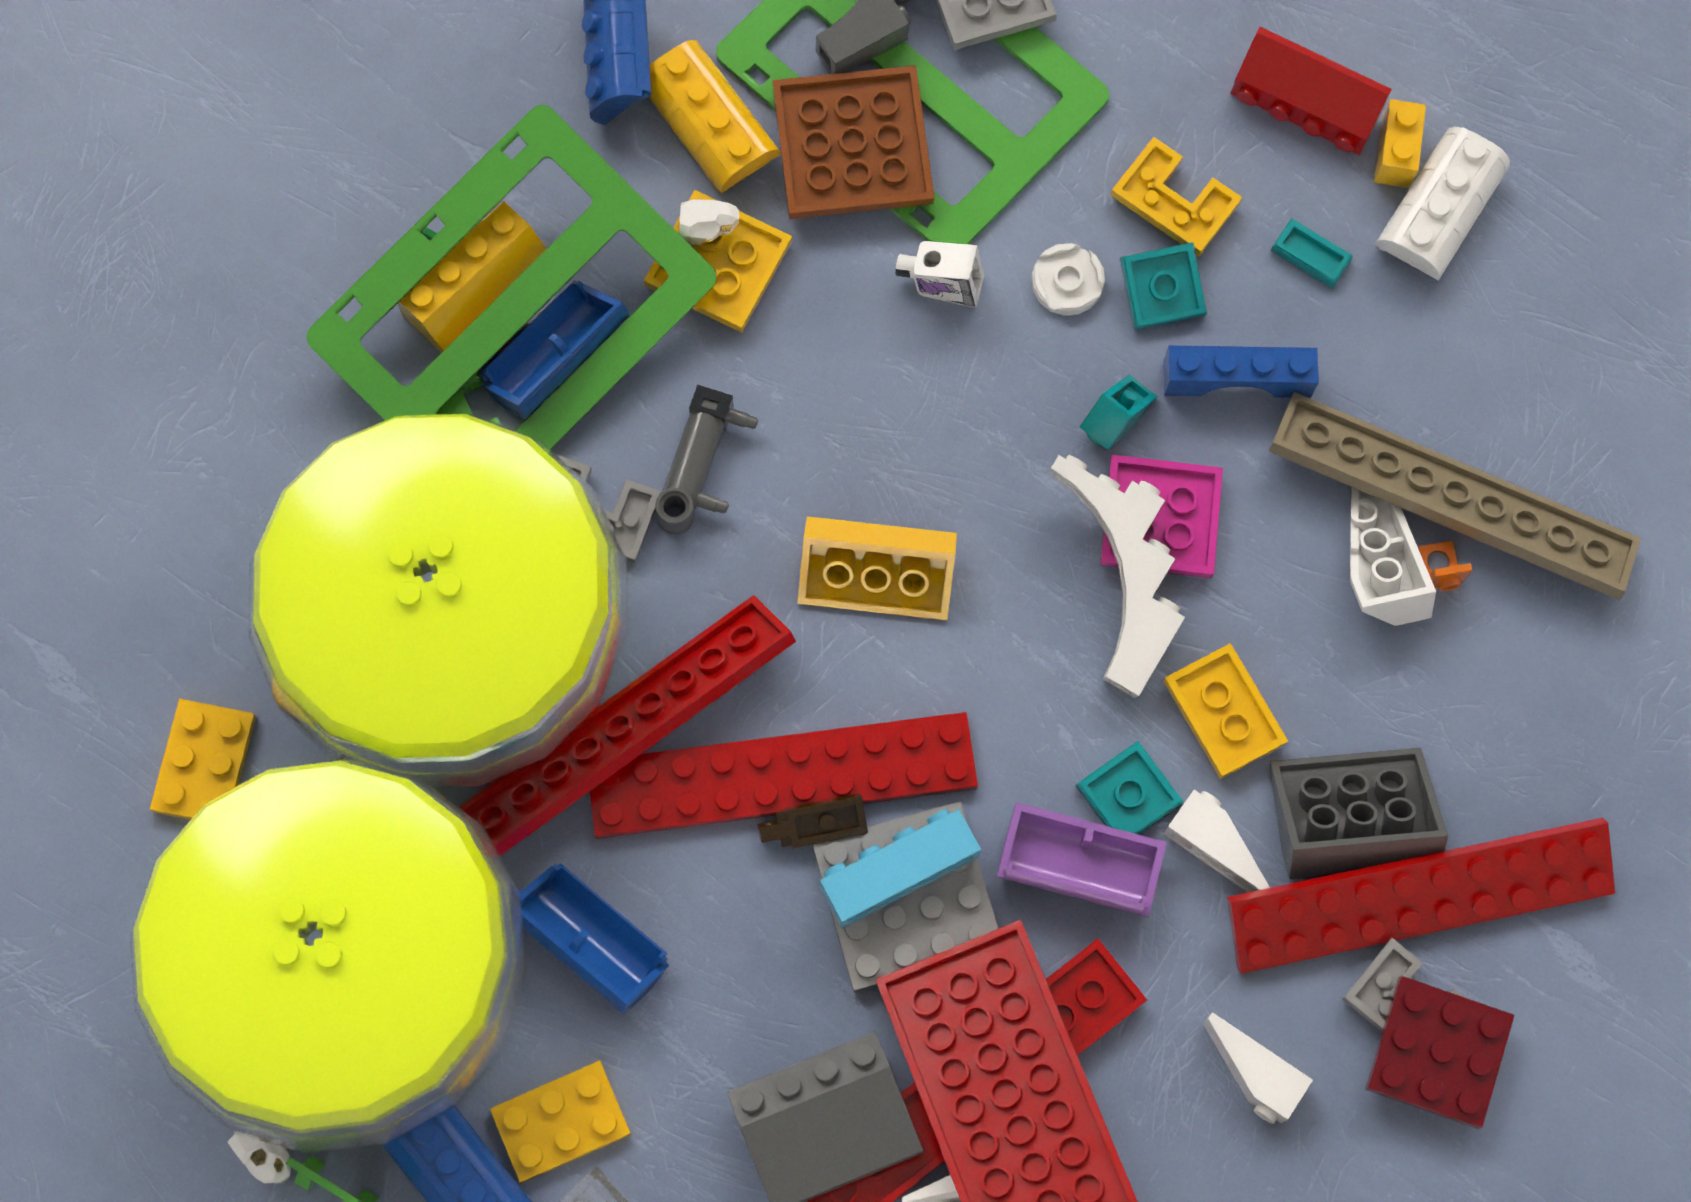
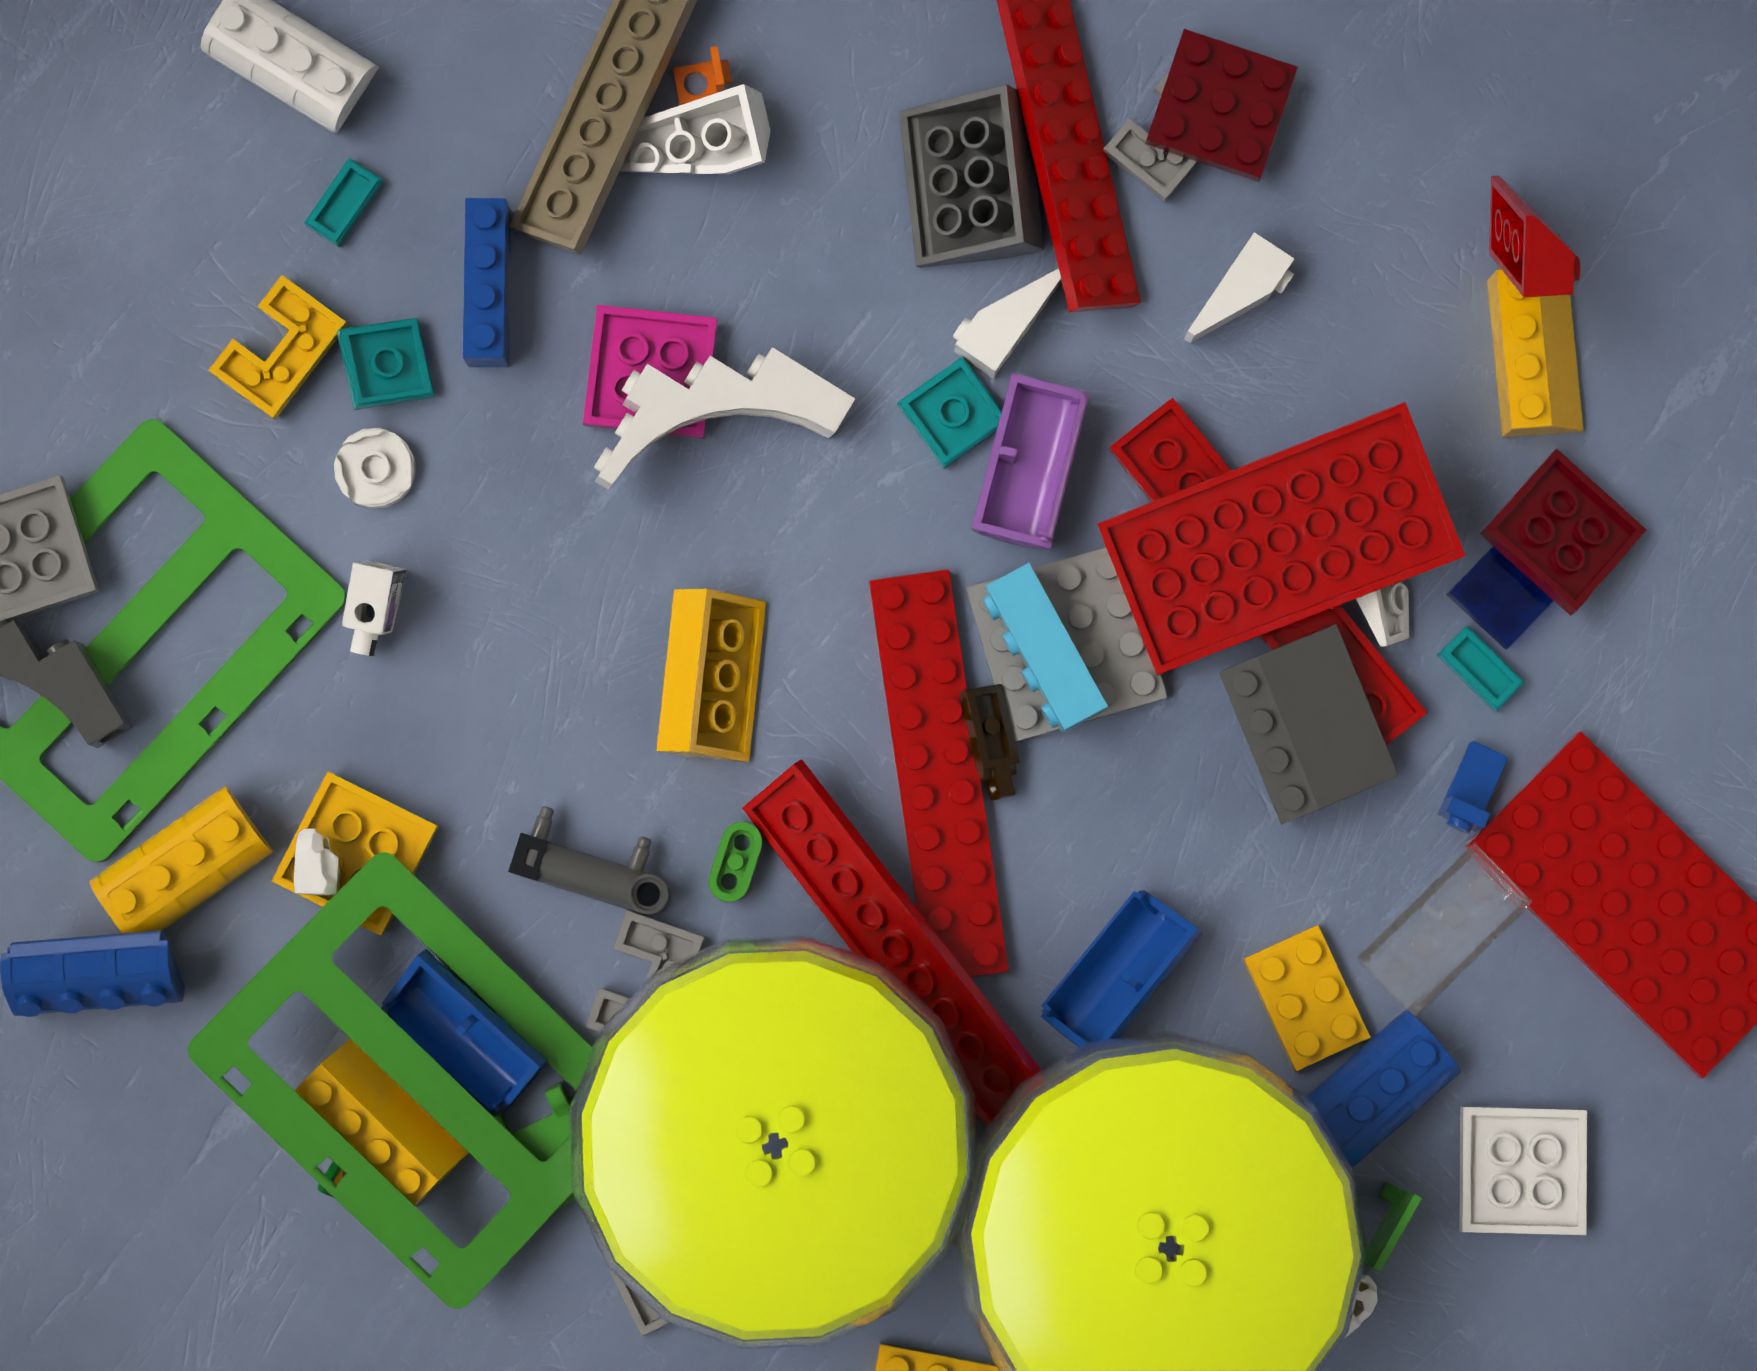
camera: 90 degrees left, 10 degrees up
(705, 586) = (735, 862): none -> bright green plate
(852, 142) = (213, 704): dark orange plate -> none
(1117, 412) = (532, 415): teal slope -> none
(1225, 711) = (864, 310): yellow plate -> none
(1310, 91) = (158, 196): red slope -> none
(1400, 143) = (217, 100): yellow brick -> none

